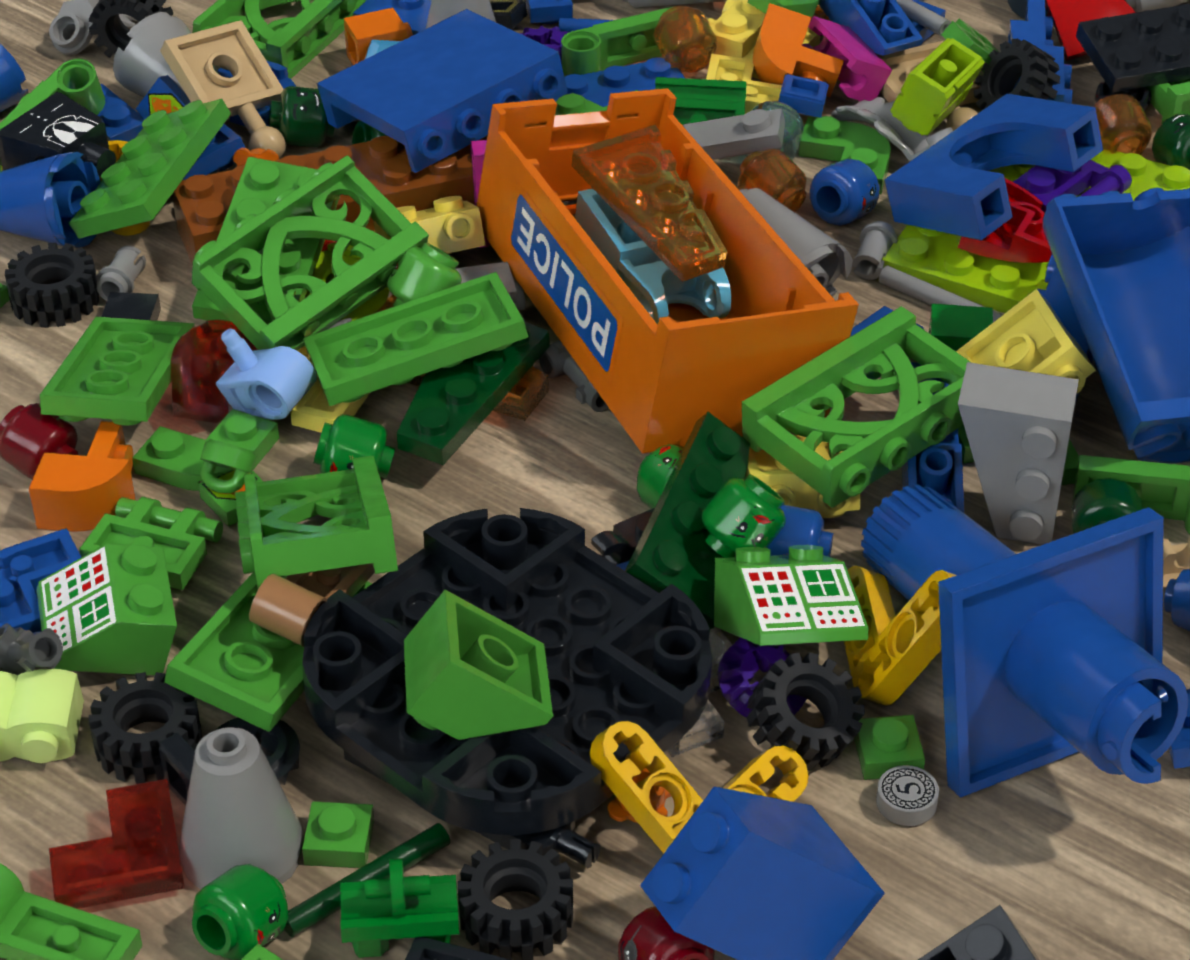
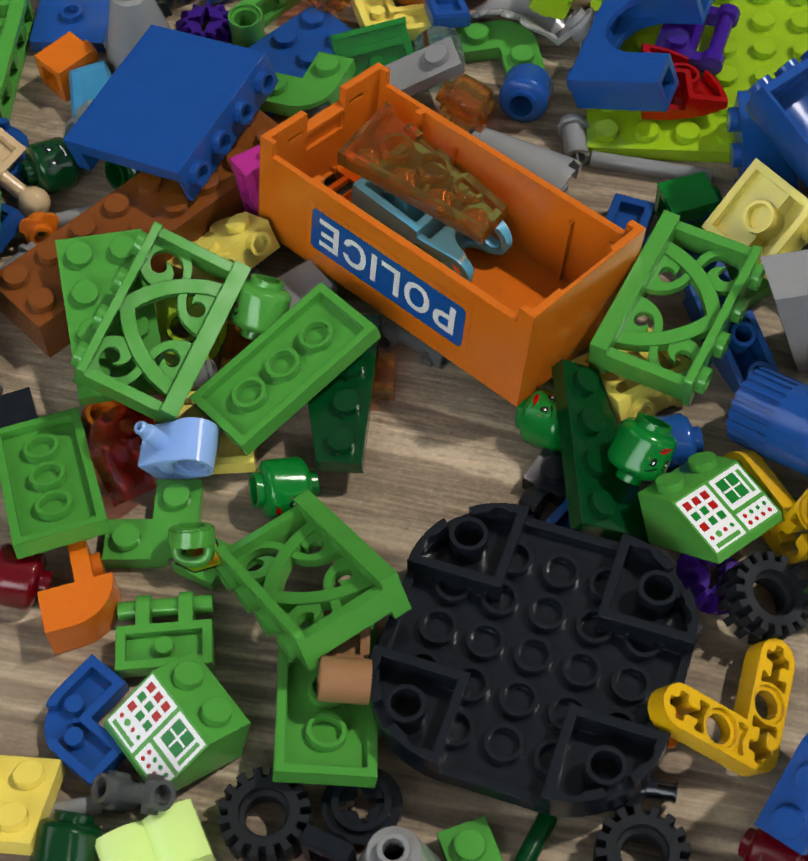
camera: 20 degrees left, 15 degrees up
(474, 672) = (533, 688): bright green slope -> none

